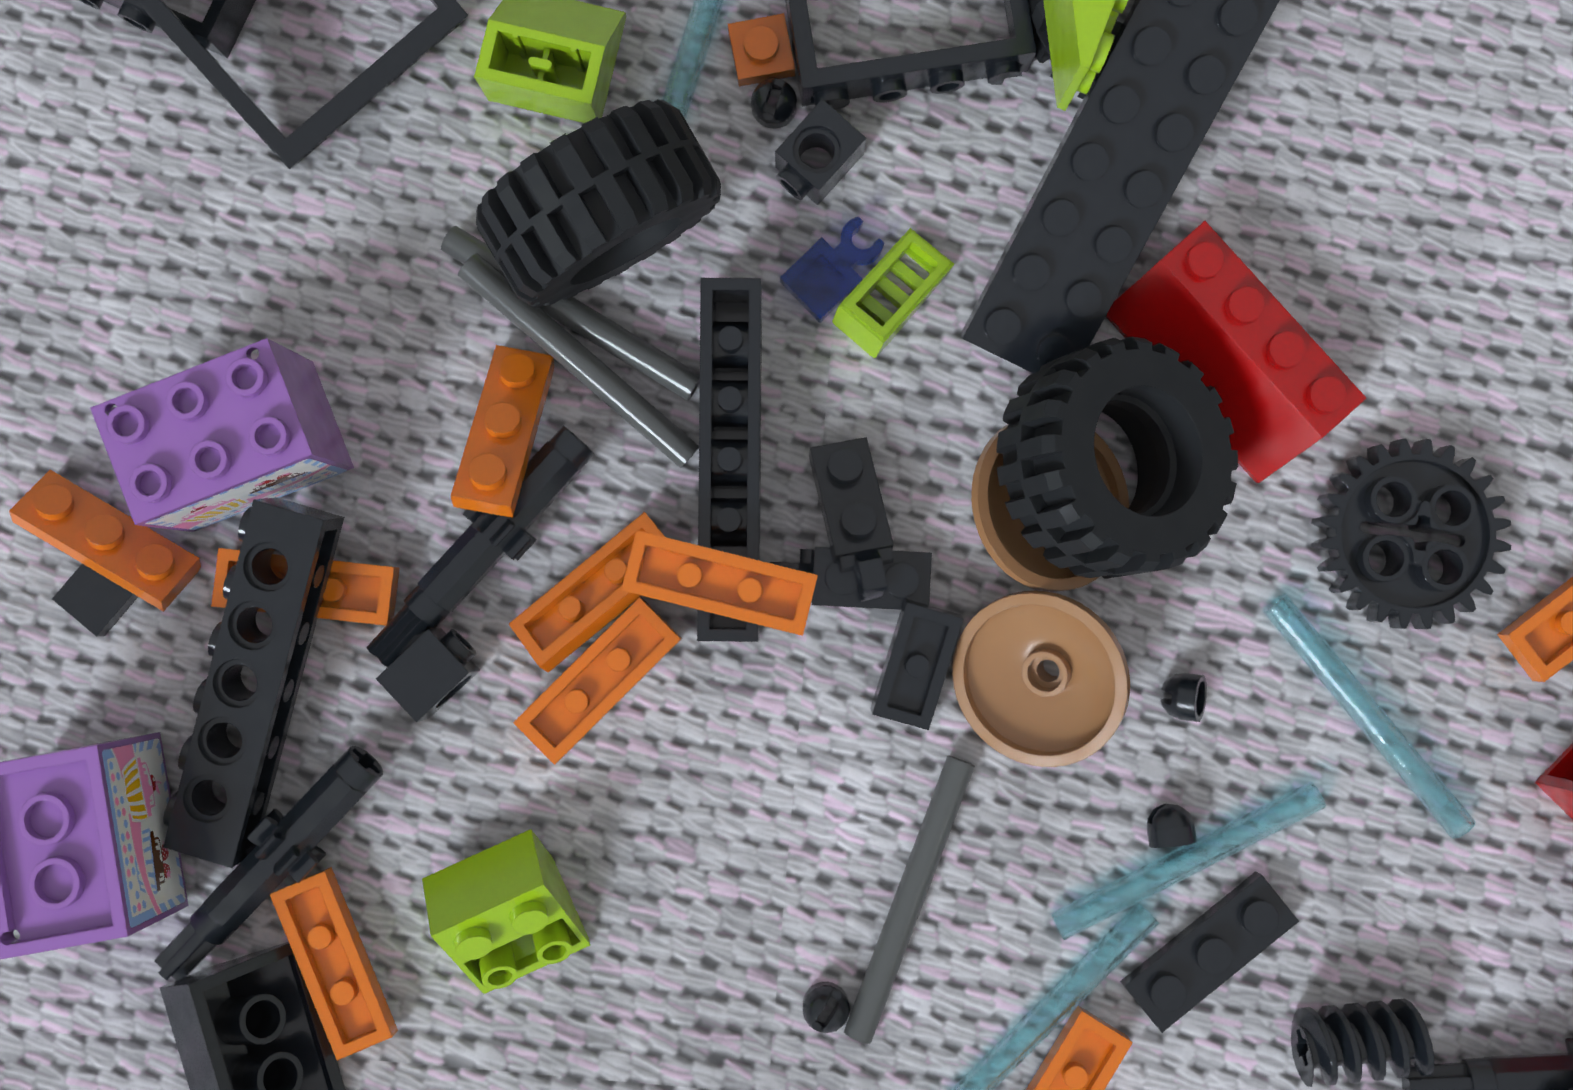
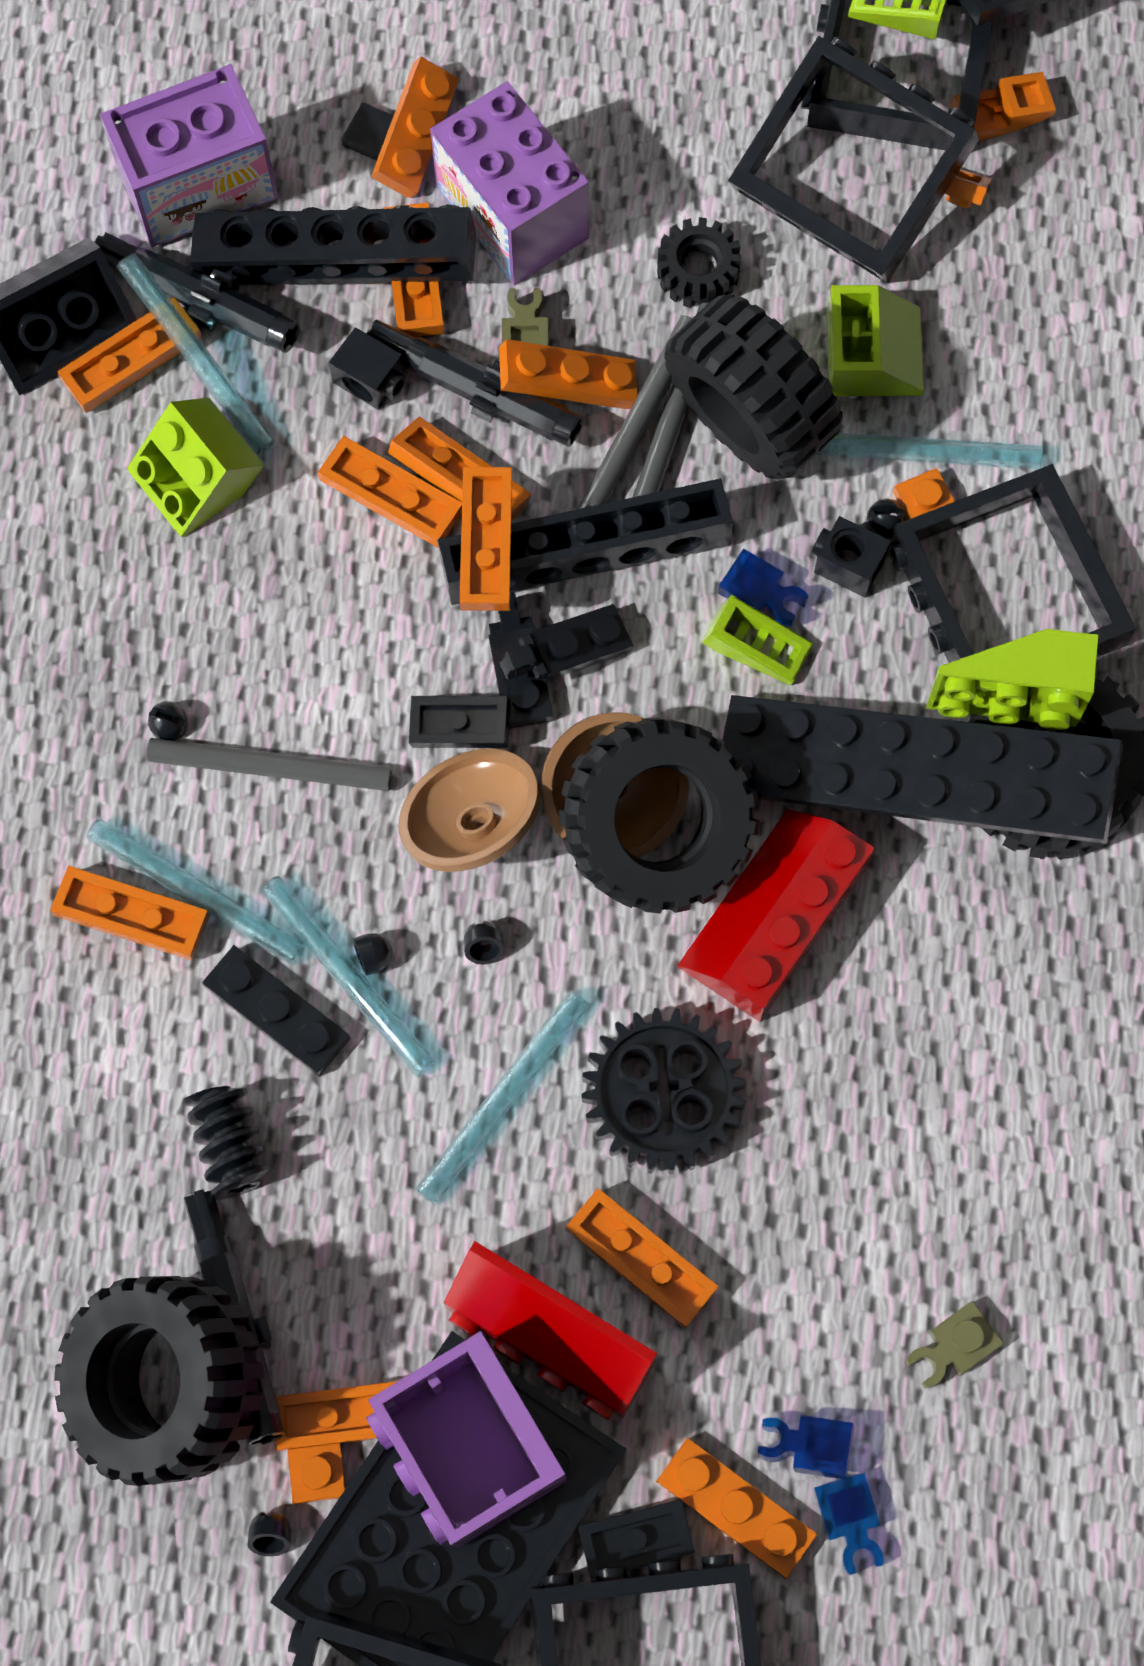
camera: 80 degrees right, 15 degrees down
(353, 885) = (195, 353): none -> clear light blue piece
(355, 220) = (703, 239): none -> black tyre
(428, 469) = (525, 324): none -> olive plate

